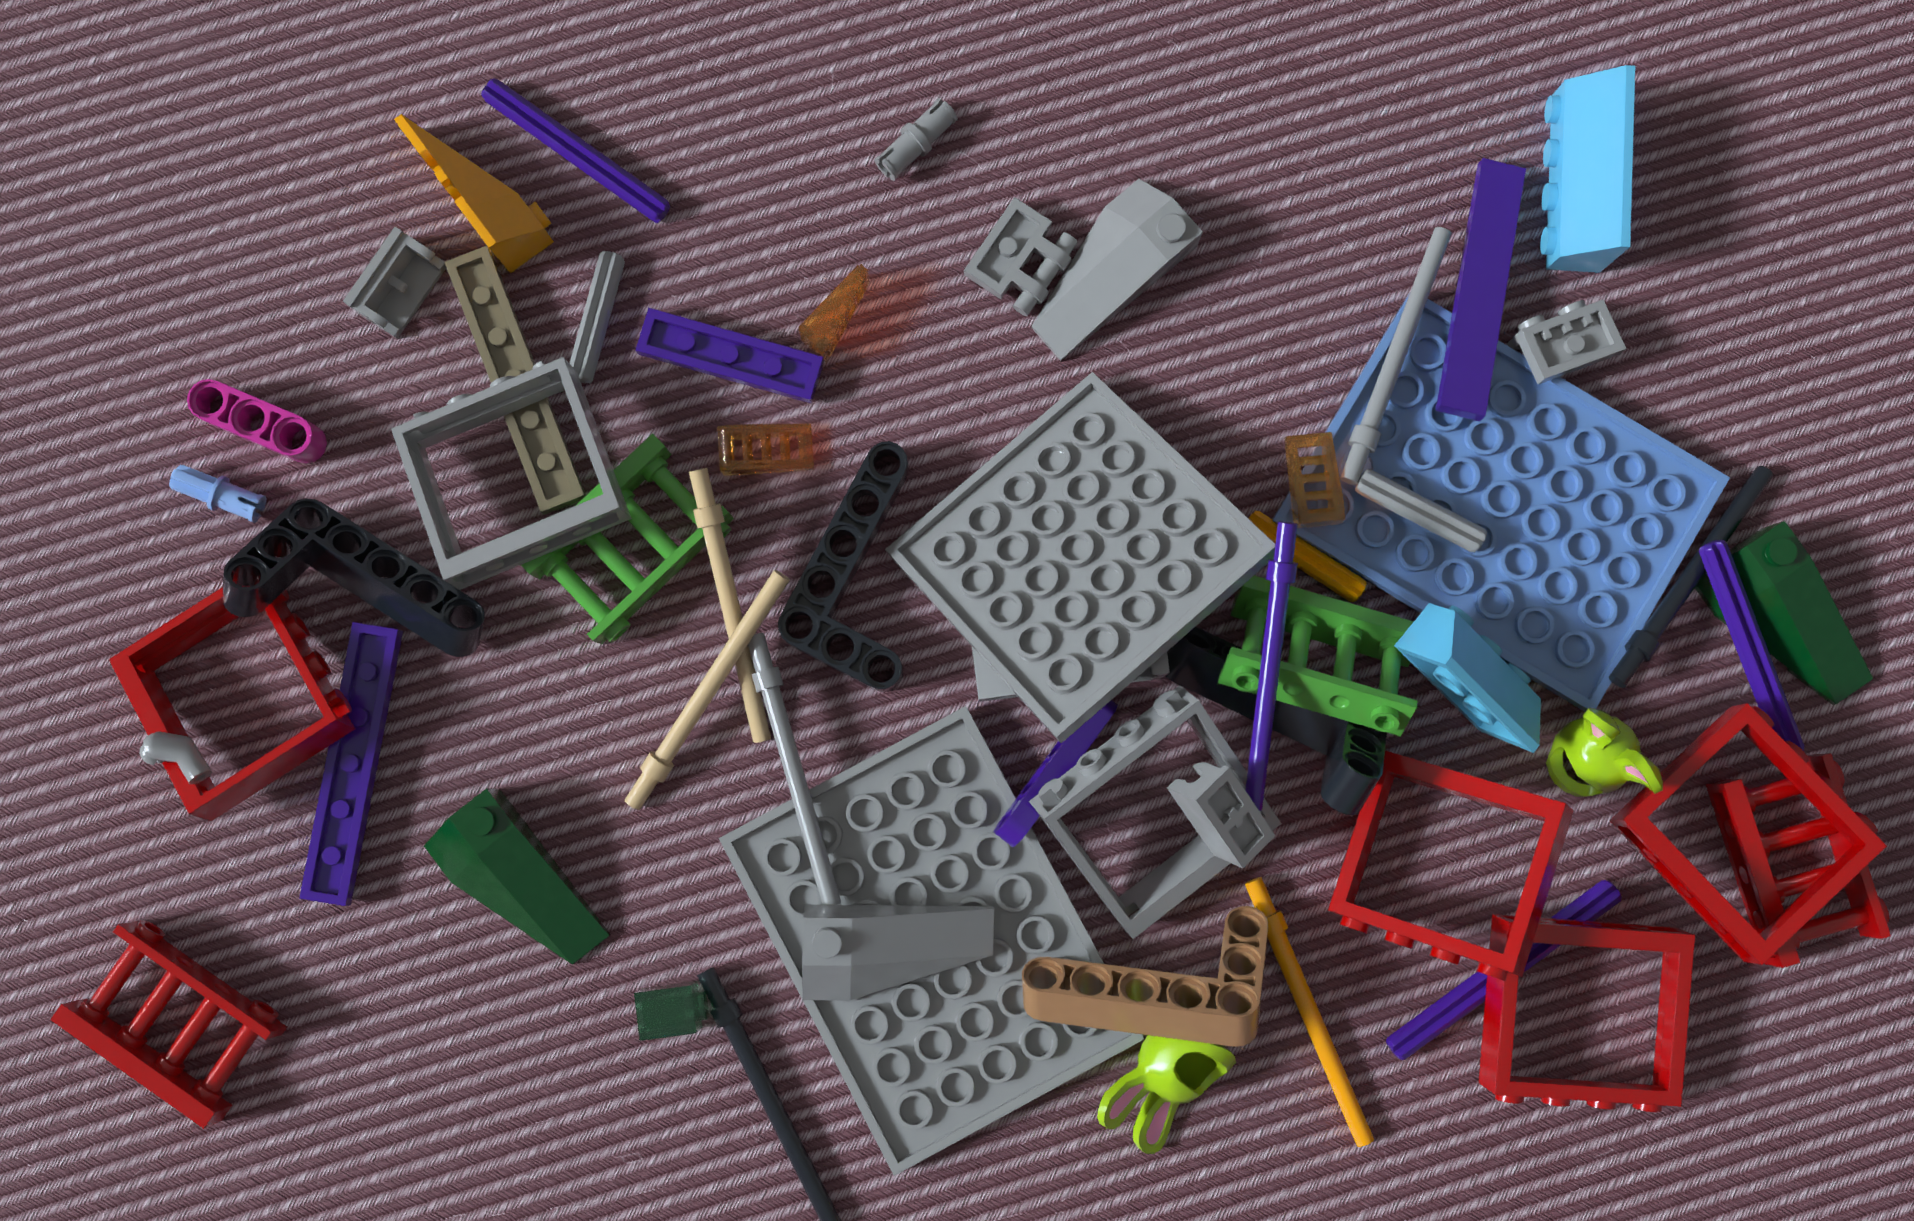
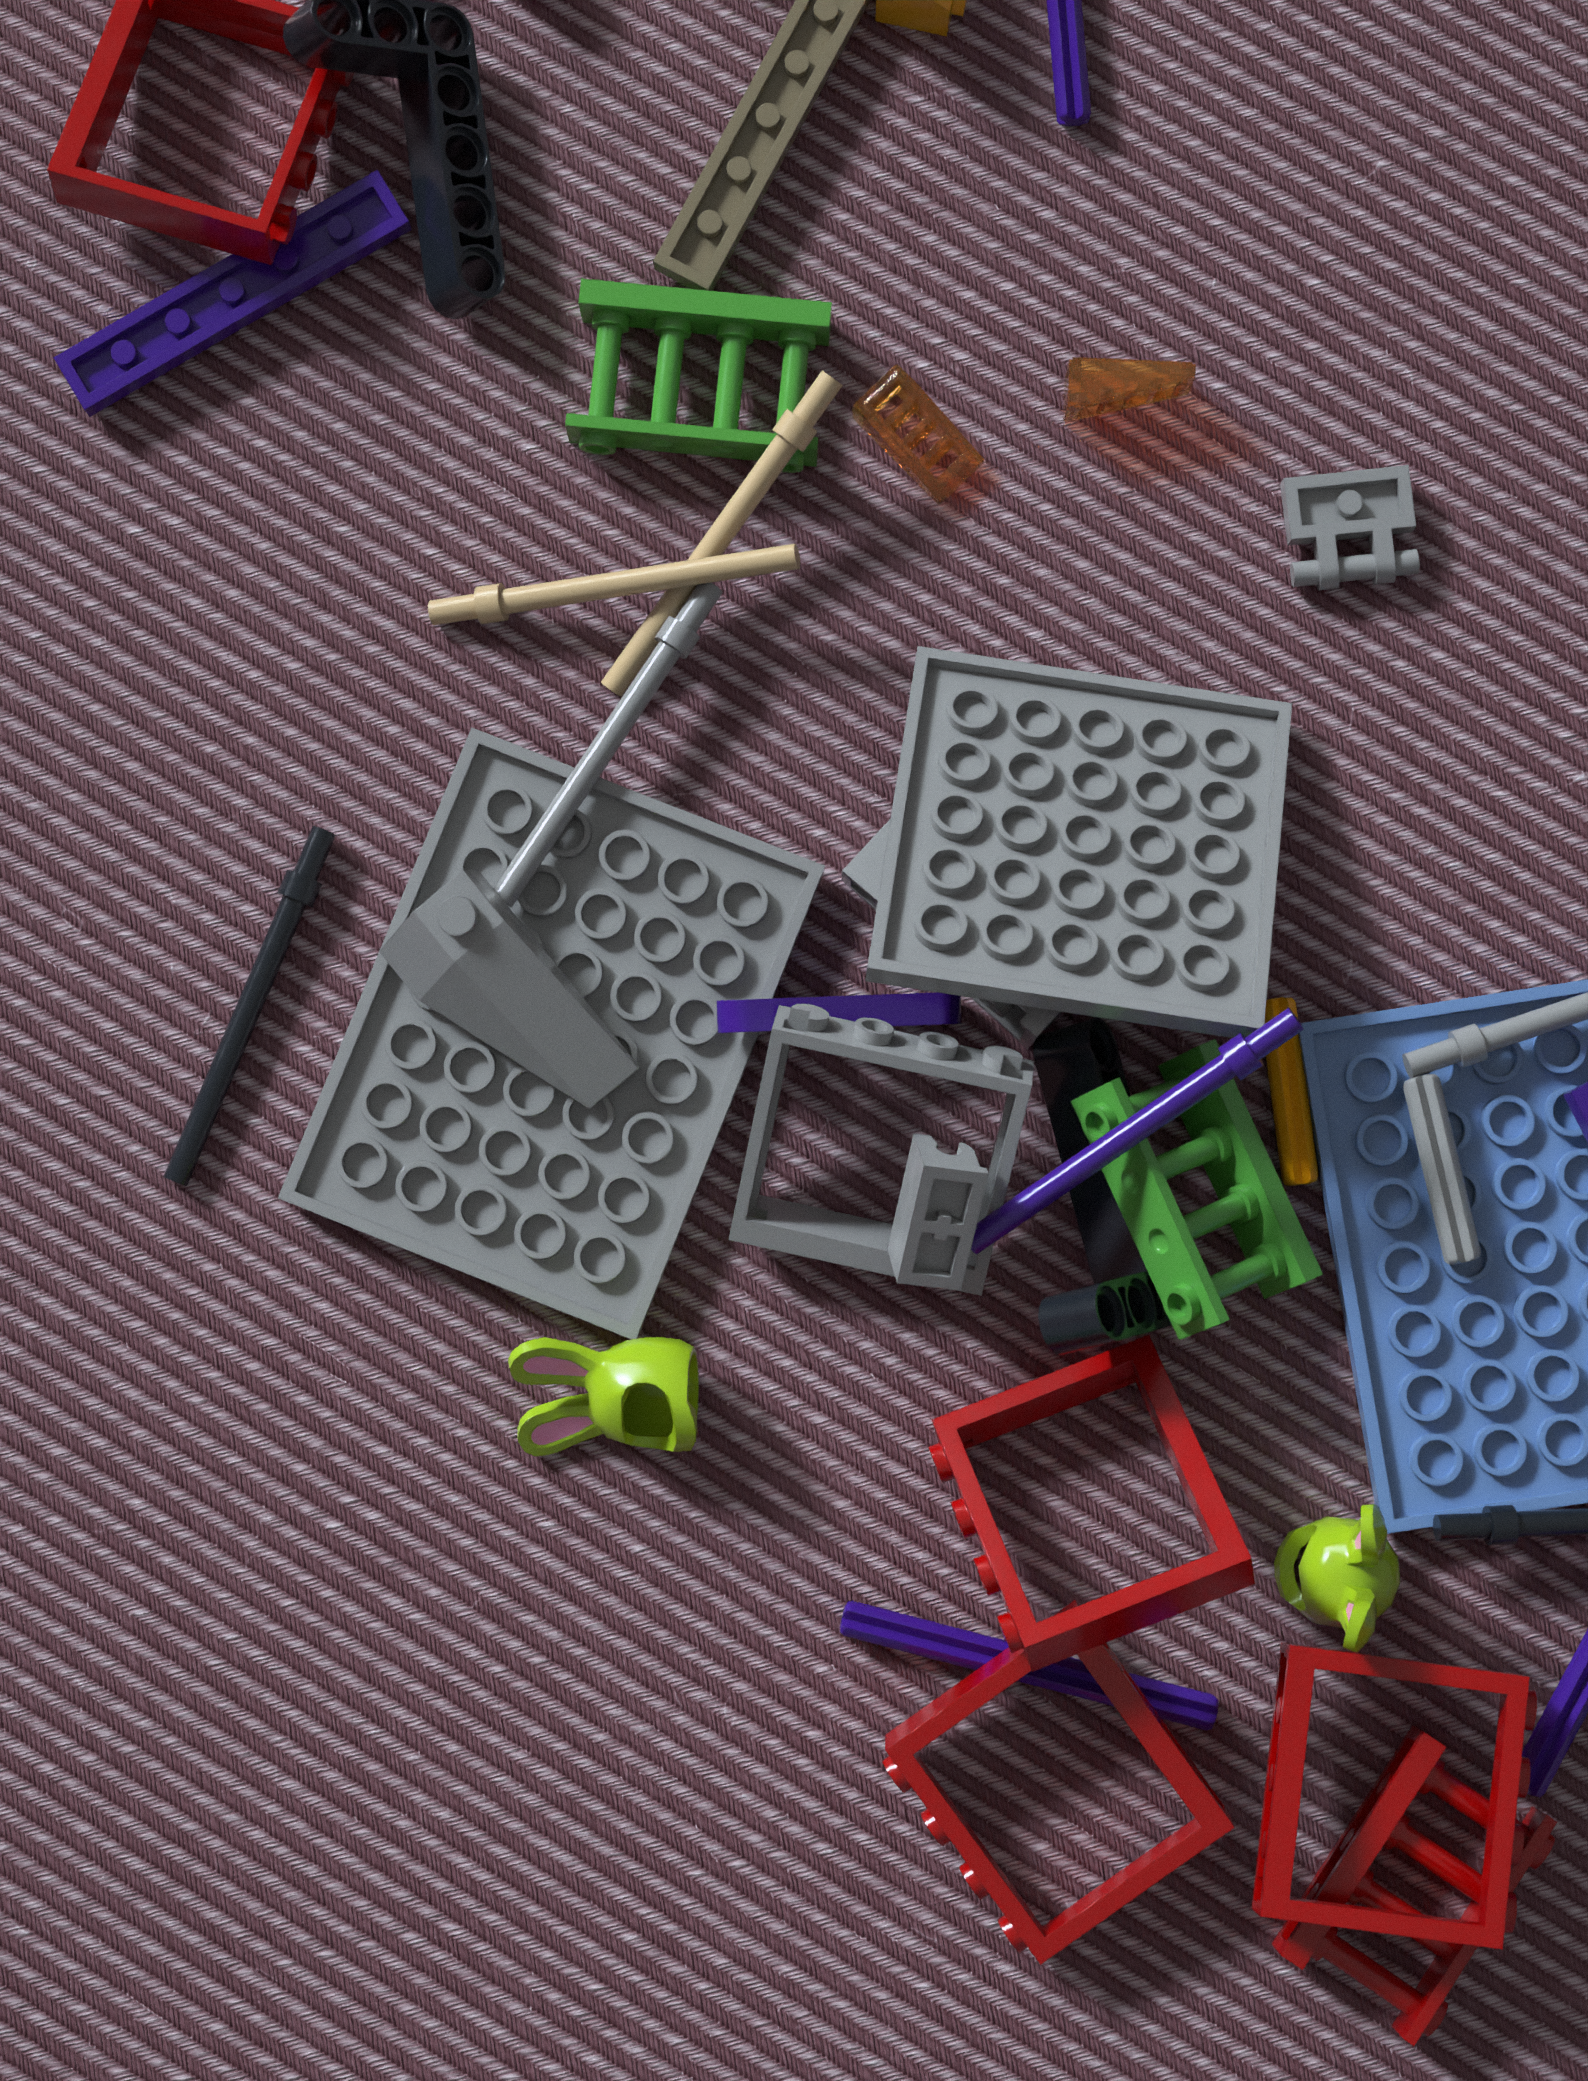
camera: 50 degrees right, 0 degrees up
(175, 748) = (103, 103): light grey arm -> none
(506, 868) = (259, 538): dark green wedge -> none
(536, 539) = (619, 276): light grey window -> none
(596, 315) = (904, 145): light grey axle -> none
(670, 1010) = (254, 827): clear green brick -> none
(730, 355) = (983, 315): dark purple plate -> none
(843, 570) = (859, 623): black beam -> none
(916, 139) = (1381, 312): light grey pin -> none
(1121, 257) = (1445, 634): light grey wedge -> none
(1158, 1001) = (687, 1317): medium nougat beam -> none
(1301, 514) = (1340, 1064): clear orange slope -> none
(1310, 1013) = (867, 1380): light orange bar -> none
(1473, 675) = (1312, 1366): medium azure slope -> none

